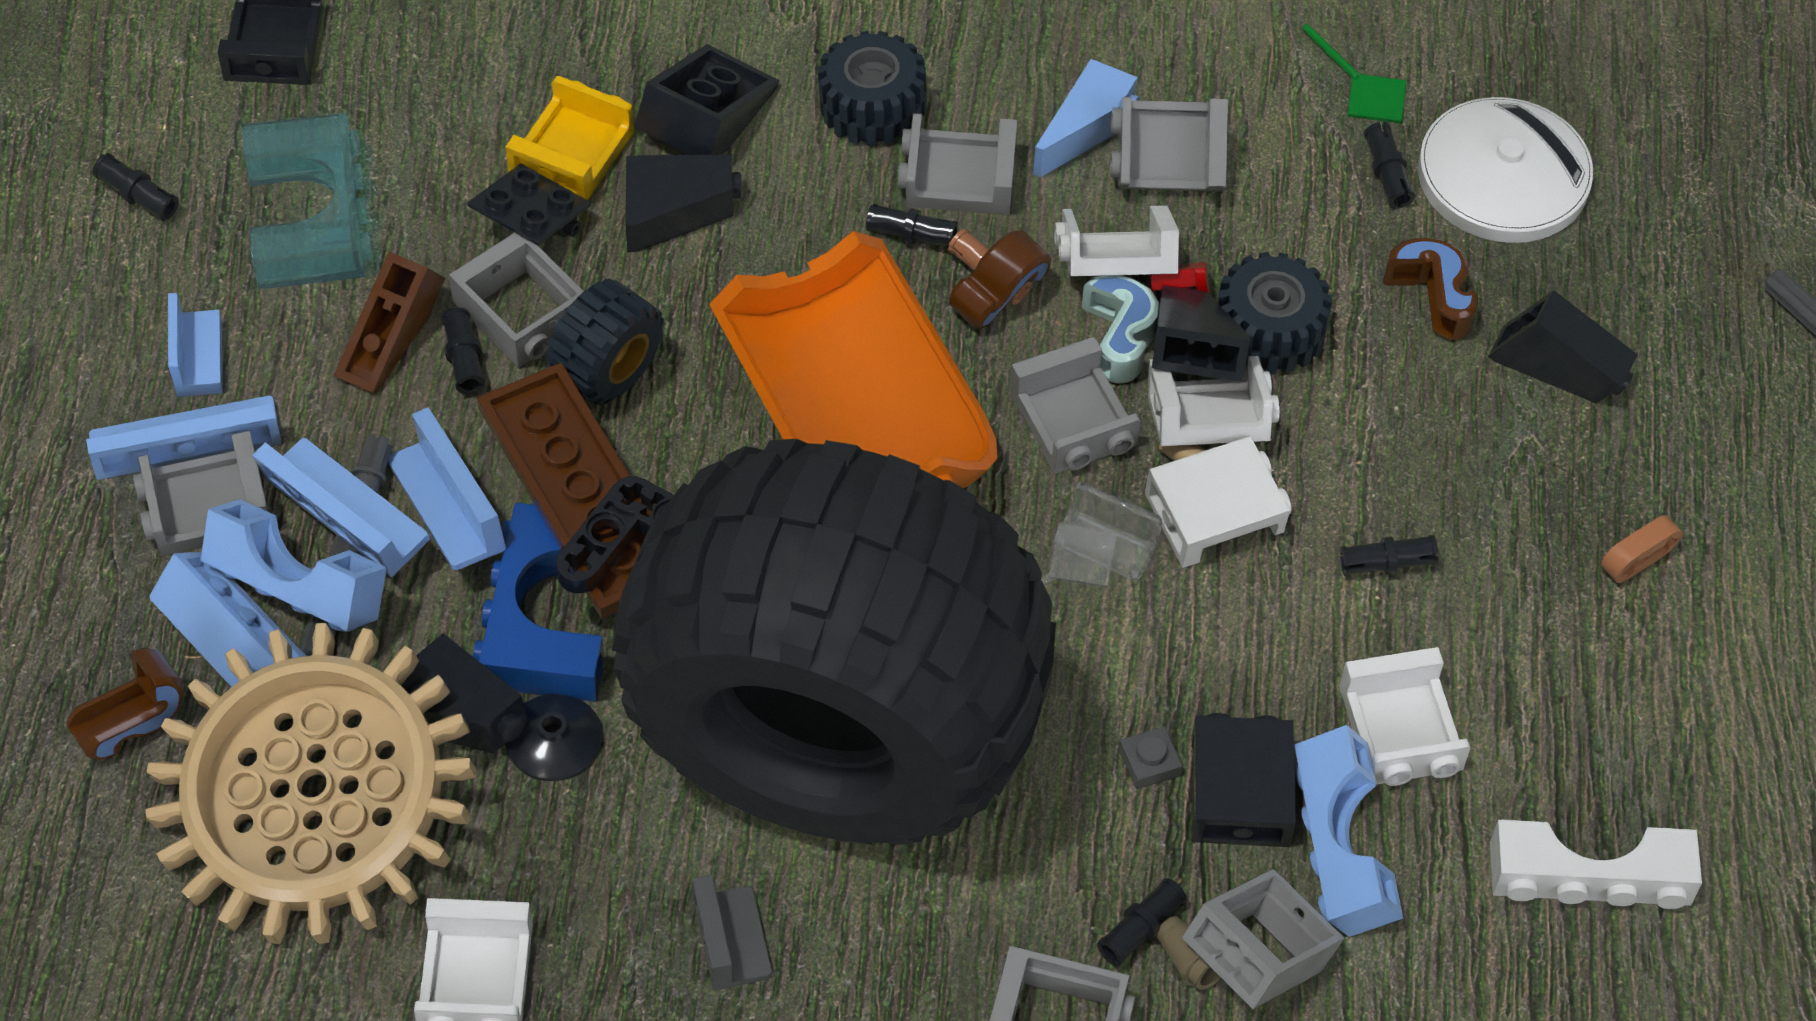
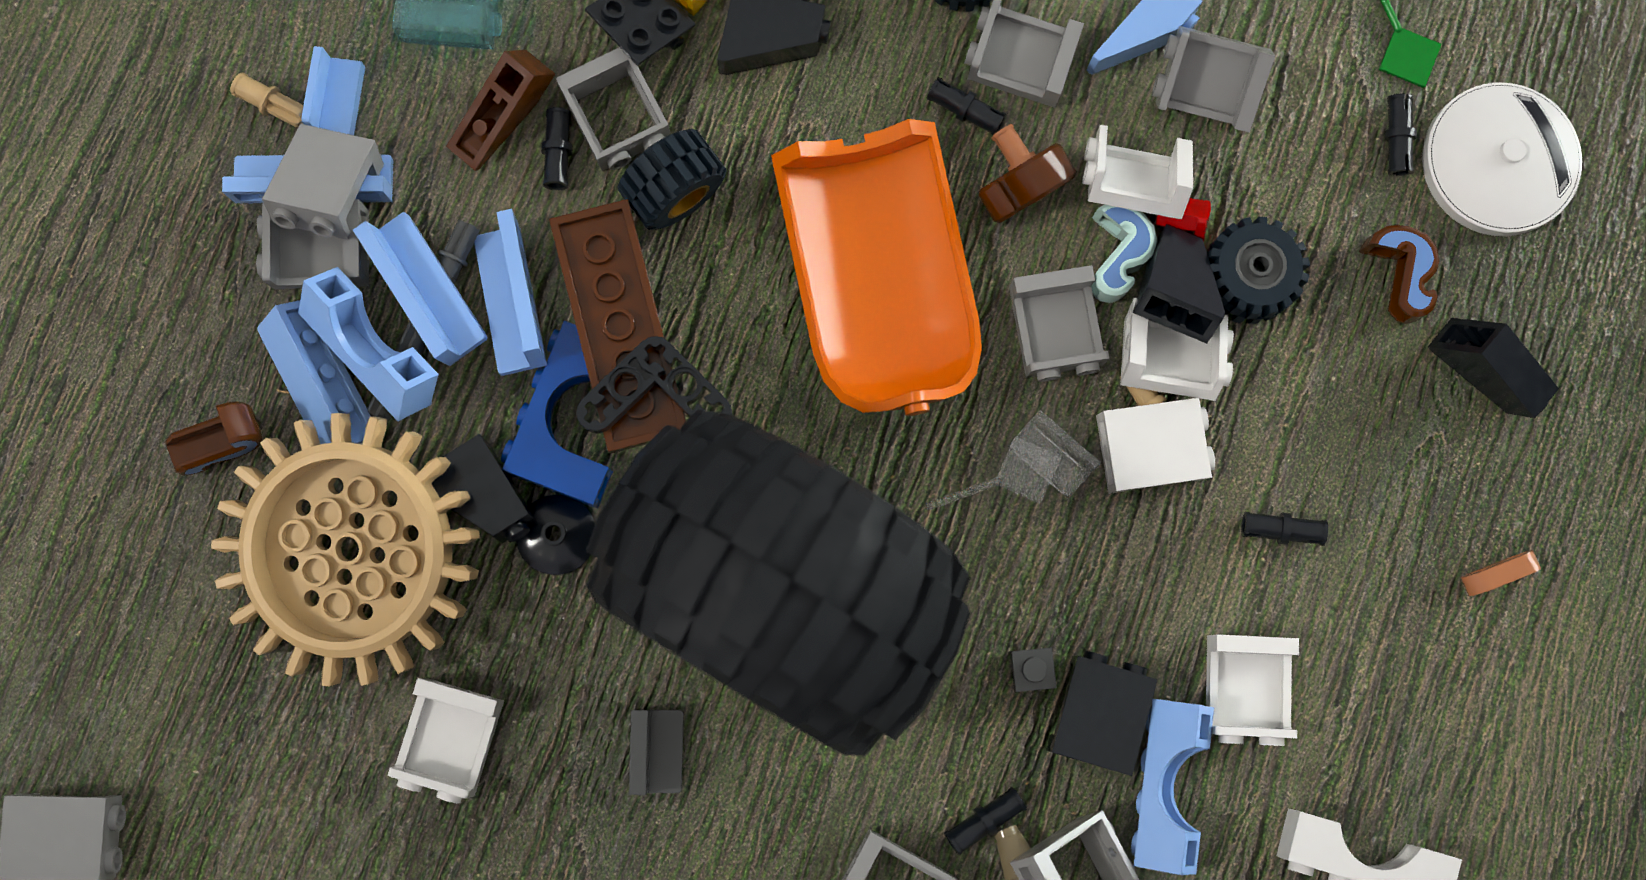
camera: 10 degrees right, 25 degrees up
(119, 367) = (267, 99): none -> tan axle
(203, 420) = (320, 180): none -> light grey panel

